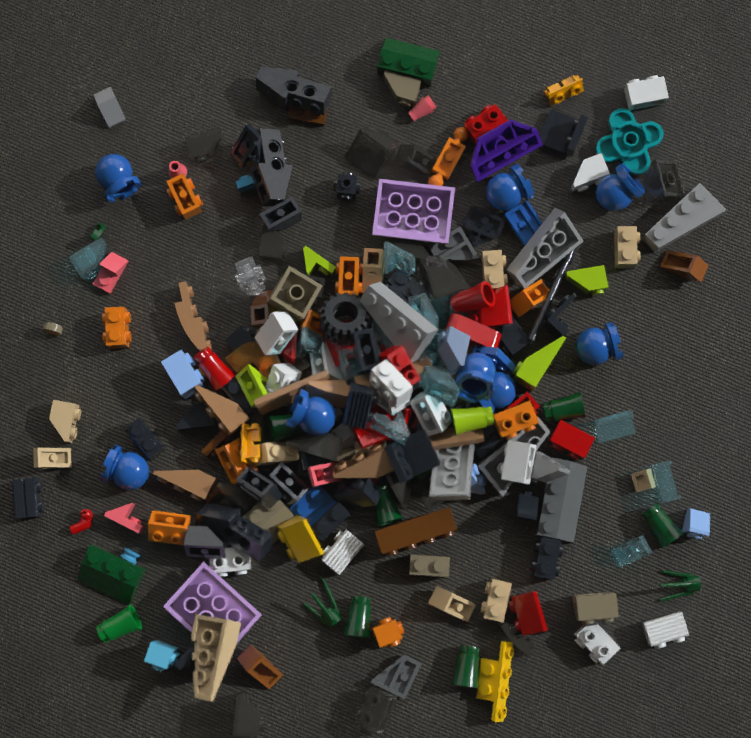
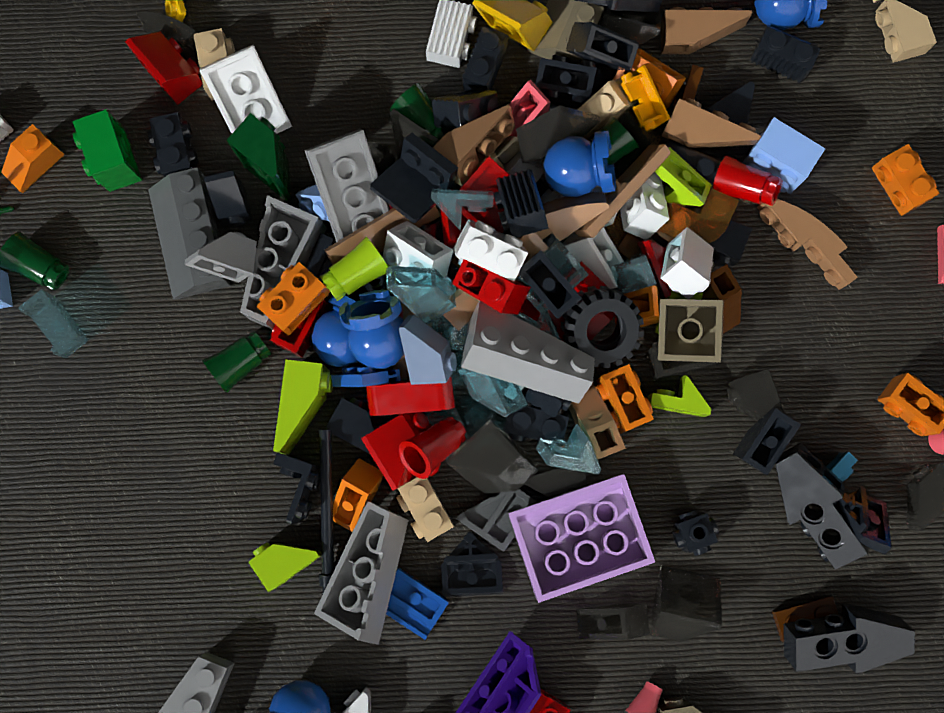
camera: 150 degrees right, 0 degrees up
(250, 276) = (764, 332): clear brick -> none
(313, 505) = (515, 70): blue plate -> none
(416, 530) = (366, 93): reddish brown brick -> none
(429, 565) = (327, 66): dark tan brick -> none
(448, 157) = (569, 648): orange plate -> none
(452, 603) = (276, 33): tan slope -> none
(488, 566) = (243, 88): none -> white tile
(493, 518) = (262, 154): none -> dark green slope
(508, 189) = (460, 639): blue tile -> none
(518, 462) = (263, 243): white brick -> none
(571, 440) = (208, 321): red brick -> none
(588, 572) = (106, 151): none -> green brick
(595, 606) = (72, 102): dark tan slope -> none
(597, 345) = (227, 469): blue tile -> none
(597, 642) = (61, 74): white brick -> none
(614, 426) = (158, 371): clear light blue panel -> none
(625, 246) = (248, 637): tan brick -> none
(631, 551) = (62, 211): clear light blue slope -> none
(638, 595) = (30, 158): none -> orange slope
(643, 480) = (85, 313): tan plate -> none
(684, 265) = (152, 650): dark orange slope -> none

